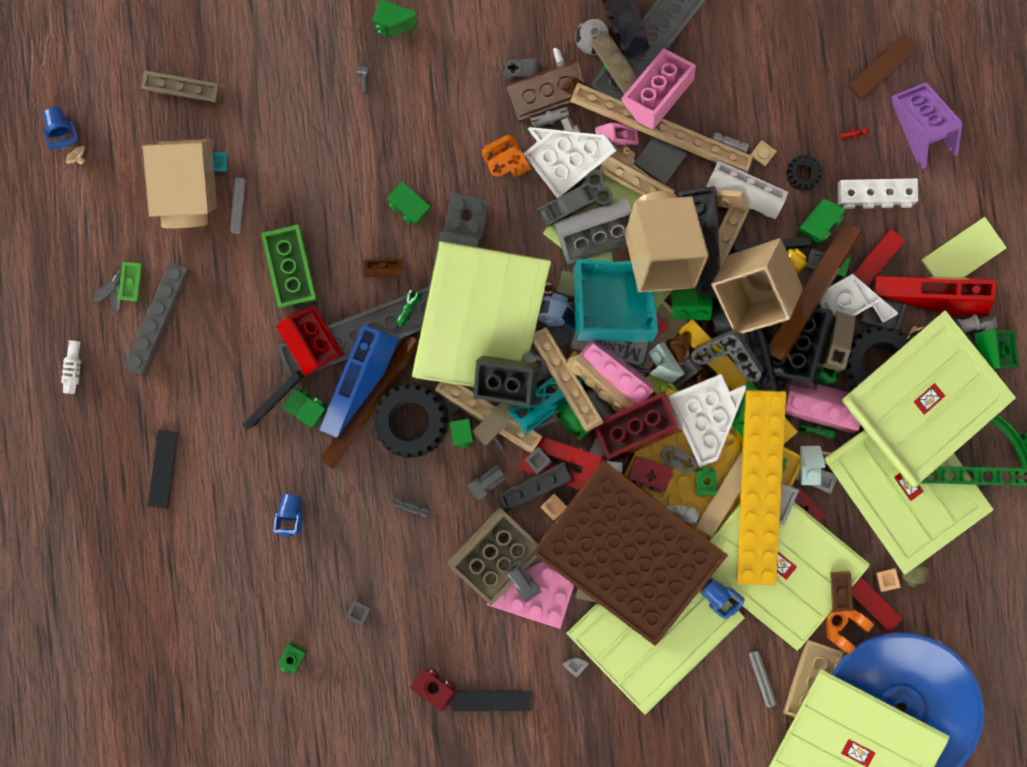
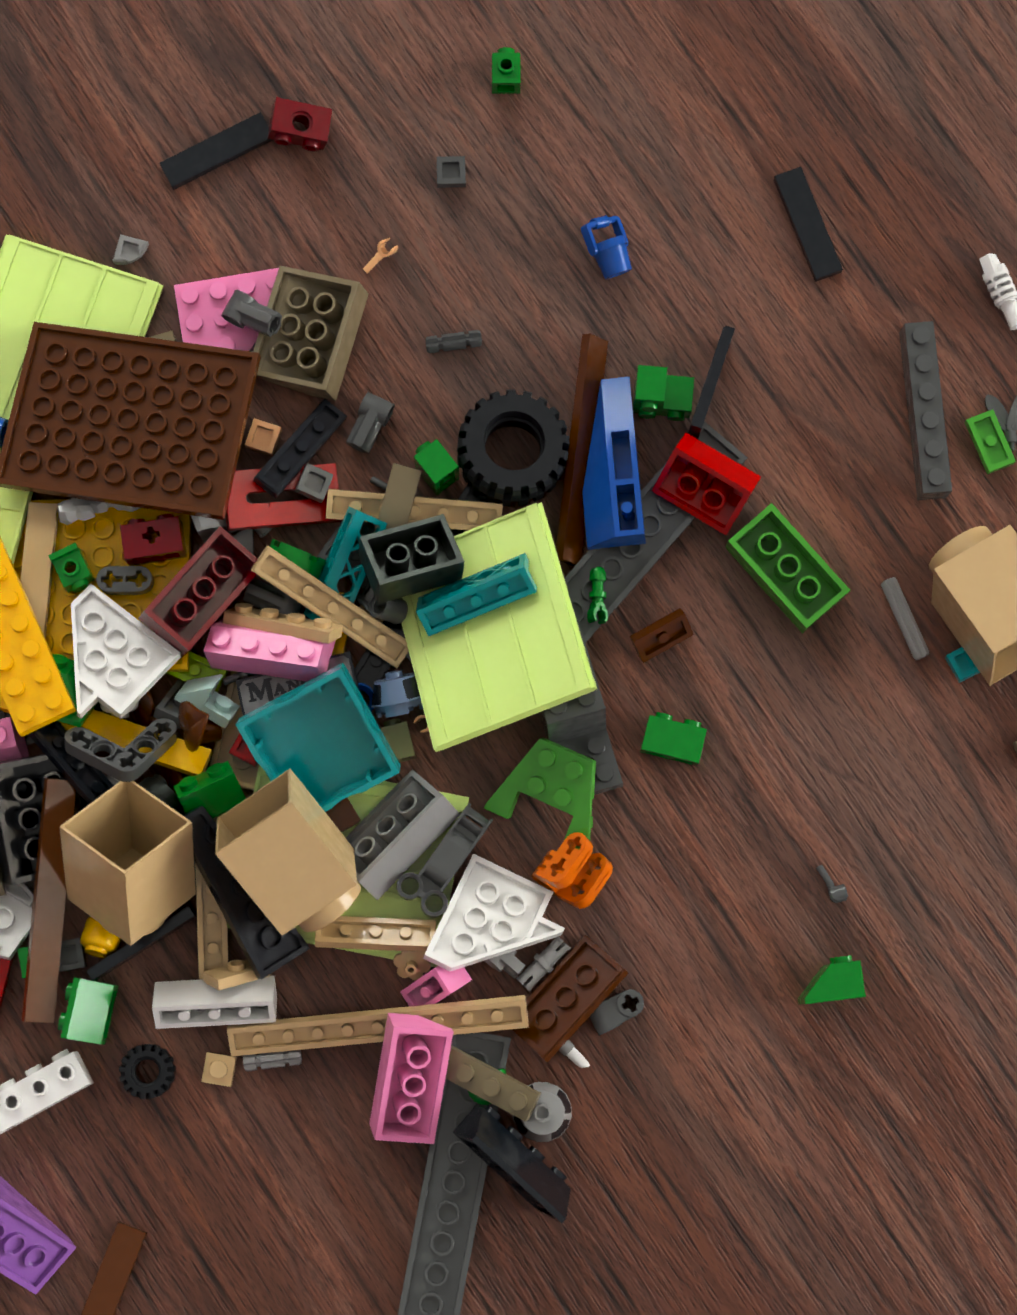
camera: 145 degrees right, 5 degrees down
(425, 584) = (382, 252): none -> light nougat hand
(479, 338) = (475, 595): none -> teal fence
(489, 215) = (554, 777): none -> bright green wing
(660, 159) = (358, 983): dark grey tile -> none
(853, 133) = (105, 1166): red hand -> none

